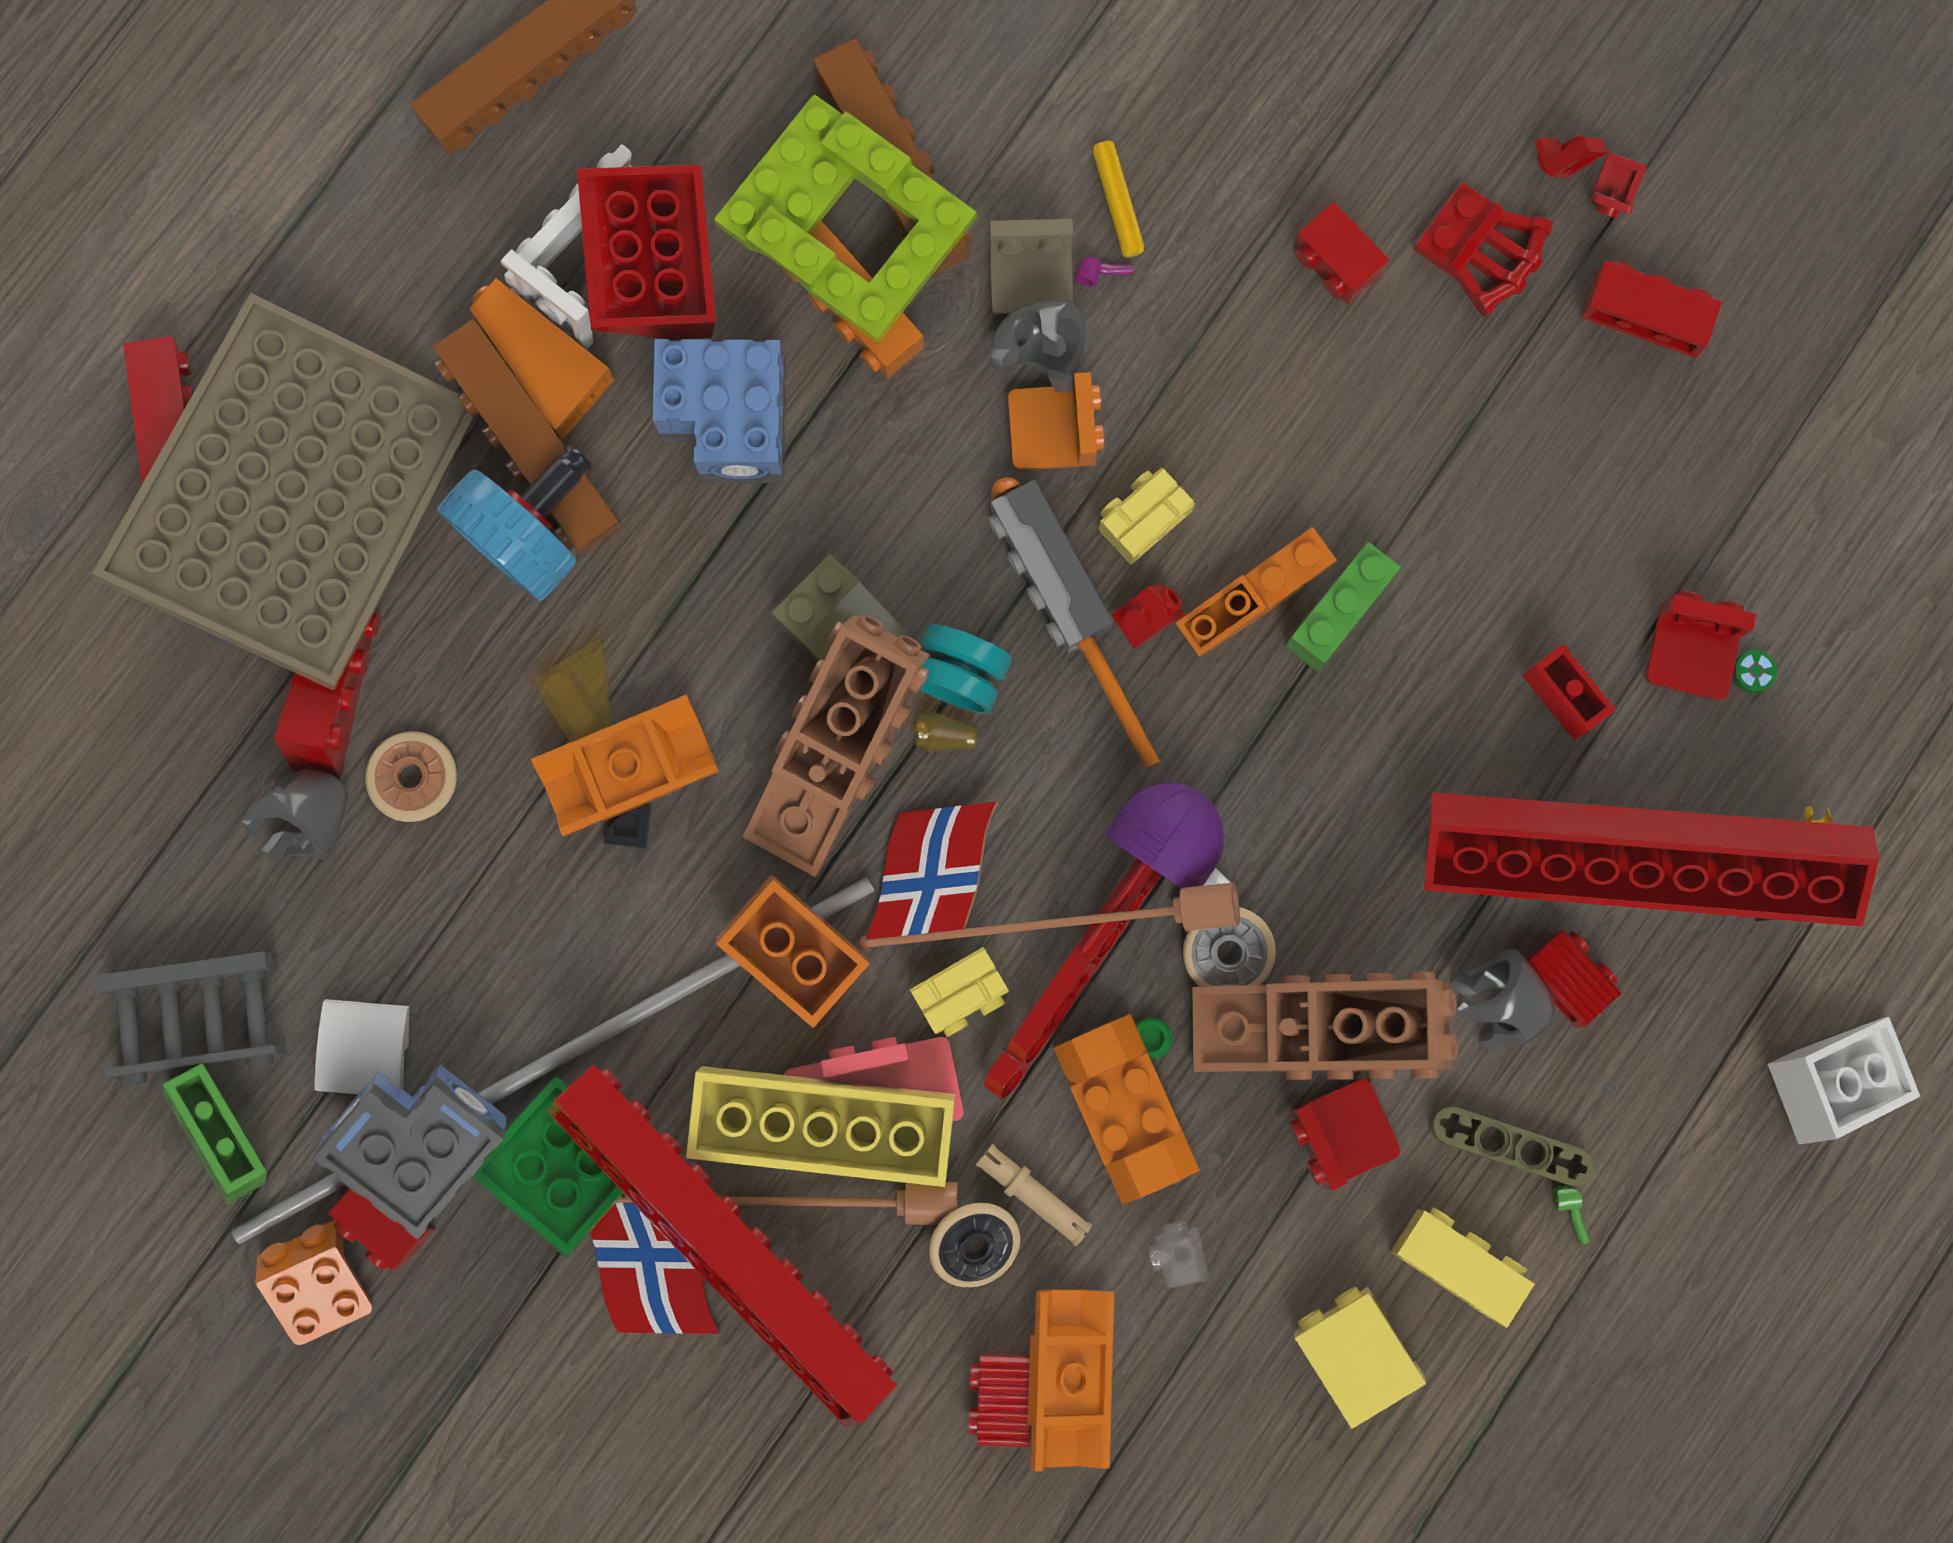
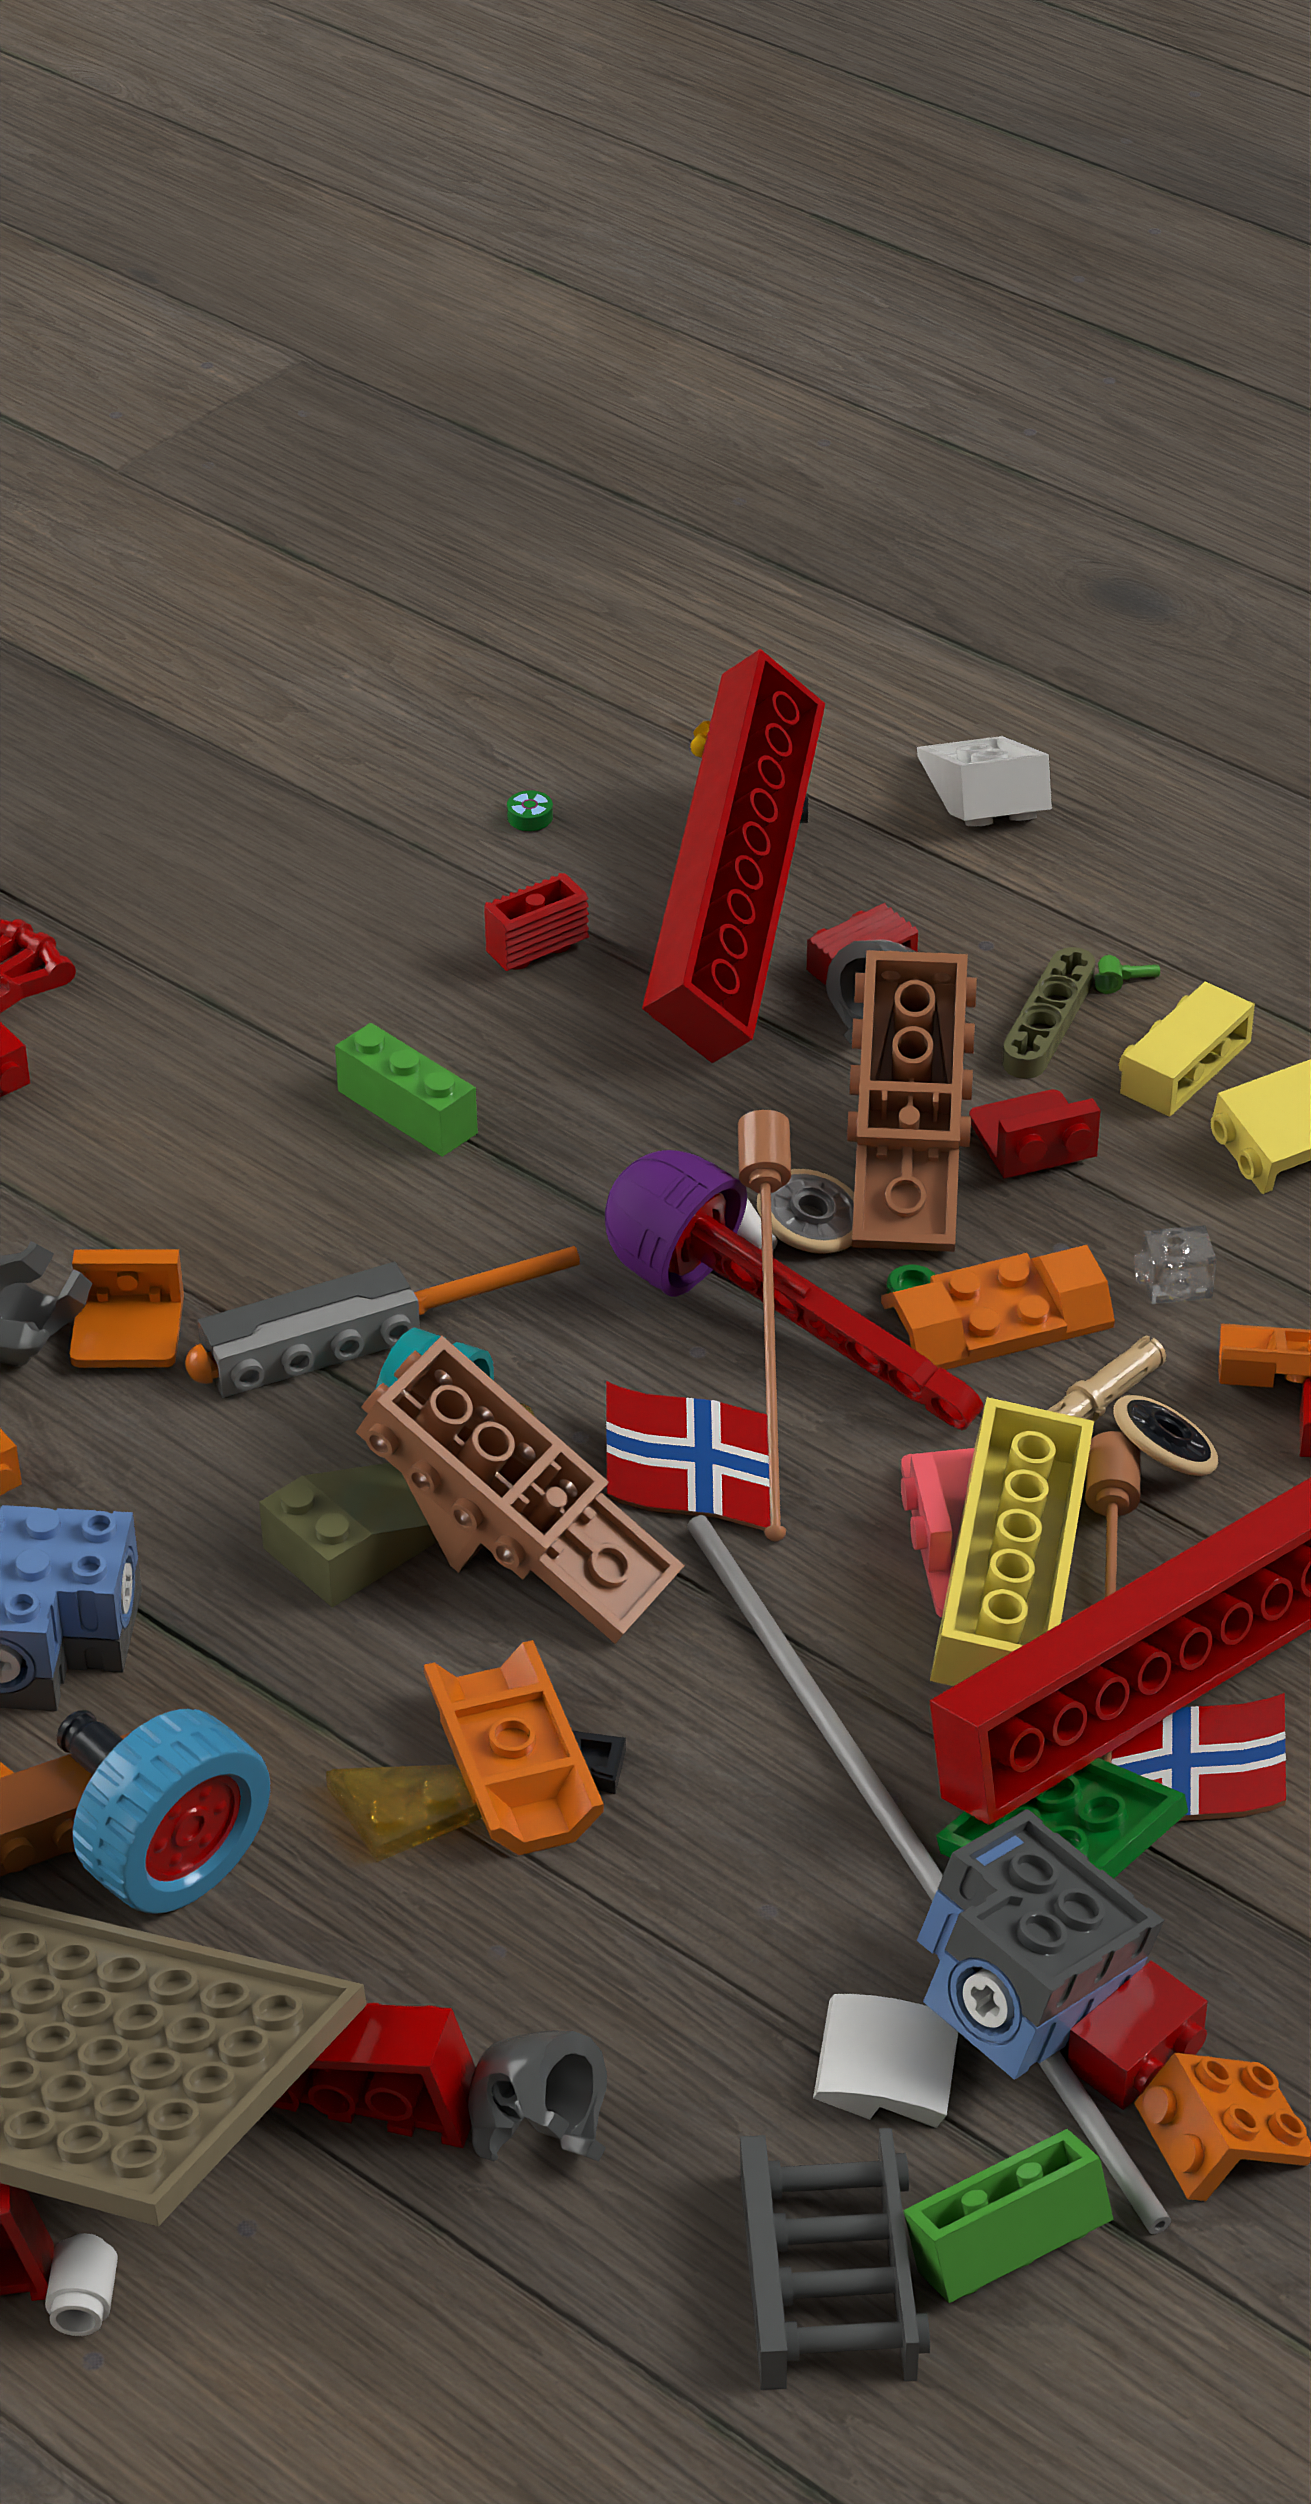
camera: 85 degrees left, 40 degrees down
(388, 762) = (503, 1963): wheel -> none
(792, 951) = (782, 1565): orange brick -> none
(959, 992) = (846, 1436): light yellow brick -> none
(1145, 514) = (260, 1244): light yellow brick -> none
(1148, 614) = (386, 1241): red bracket -> none
(1256, 592) = (371, 1157): orange slope -> none
(1651, 308) = (101, 846): red brick -> none
(1697, 645) = (488, 842): red bracket -> none

